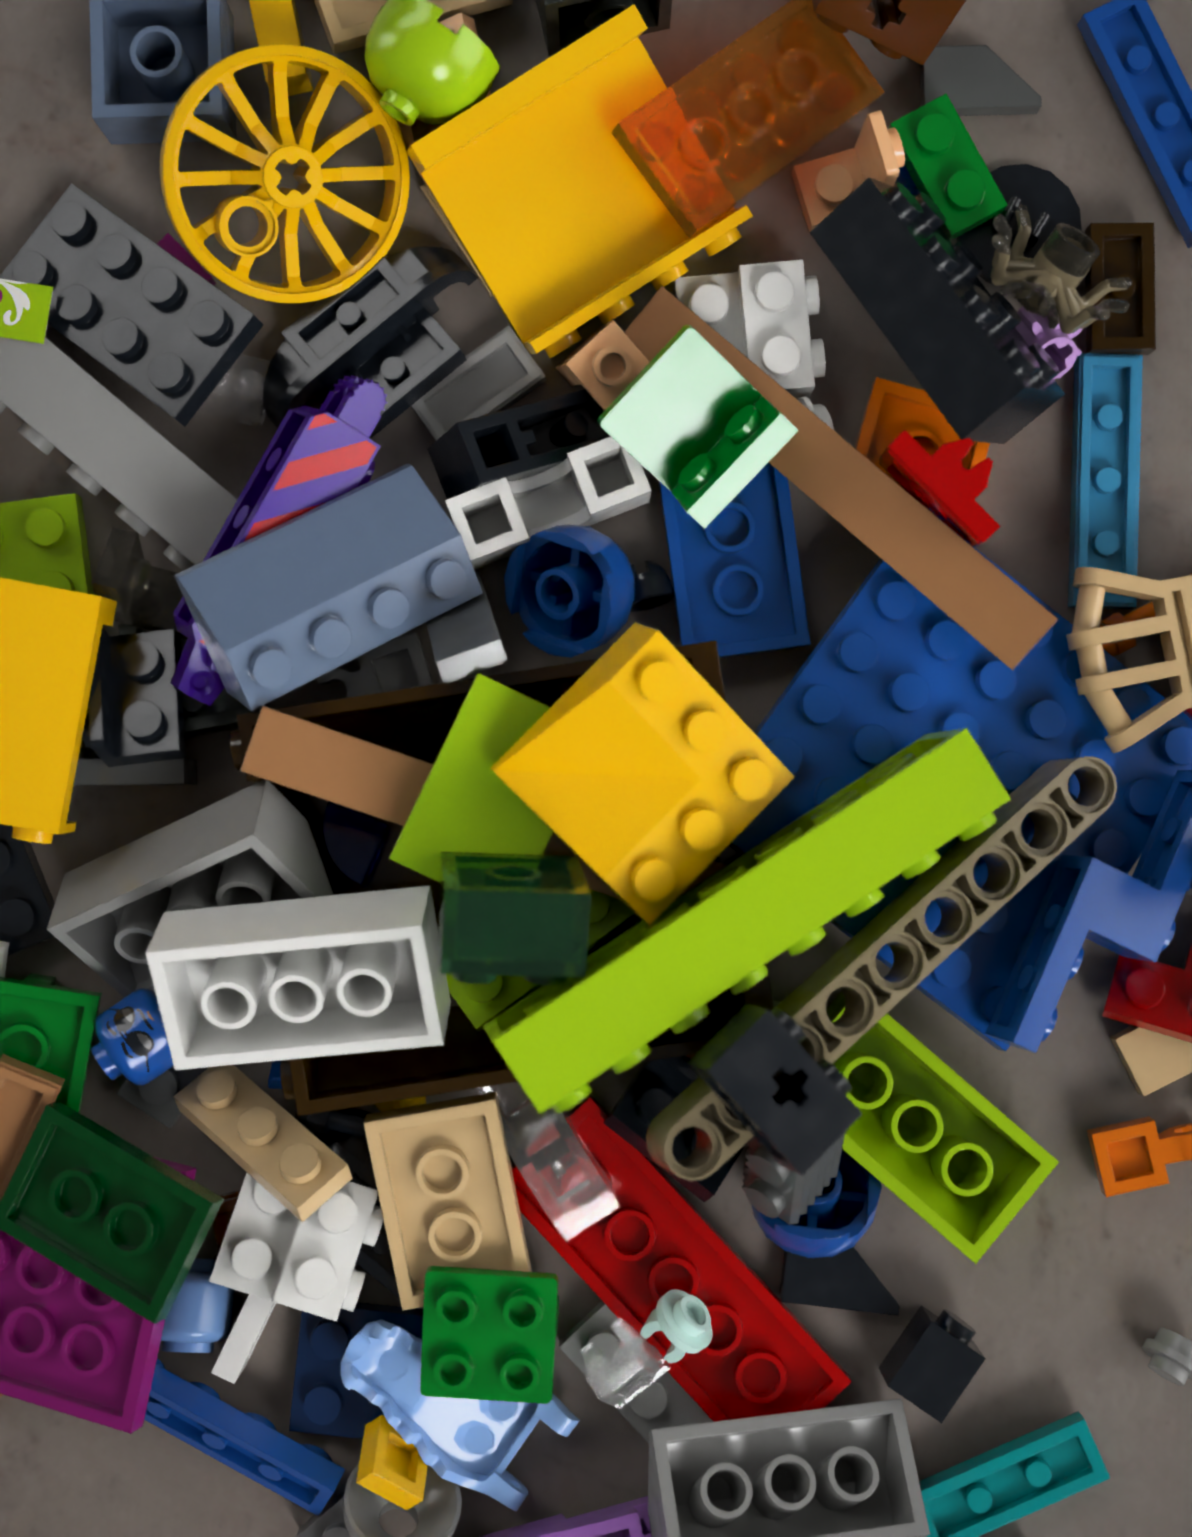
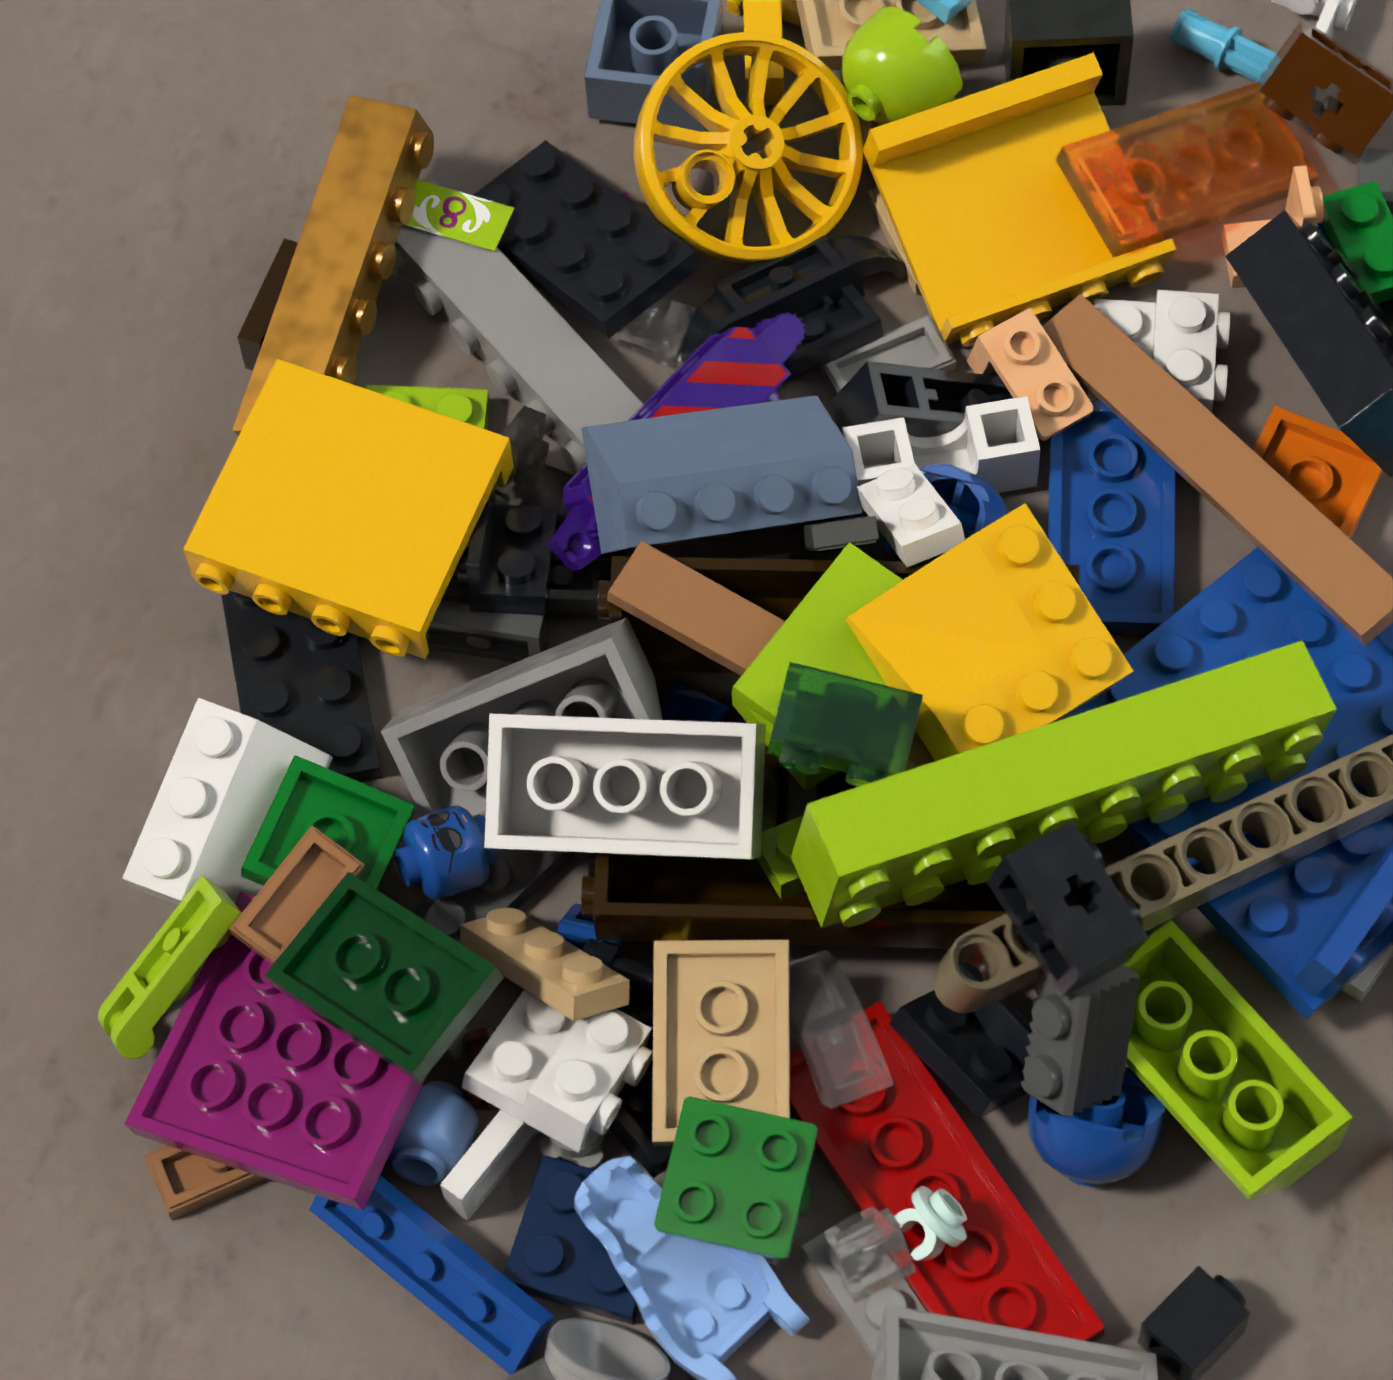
camera: 15 degrees right, 25 degrees down
(391, 1465) = (606, 1309): yellow plate -> none
(535, 607) = (911, 514): none -> white plate
(696, 425) = (1089, 390): bracket -> none
(835, 1283) = (1103, 1232): black tile -> none
(943, 484) = (1319, 468): red piece -> none

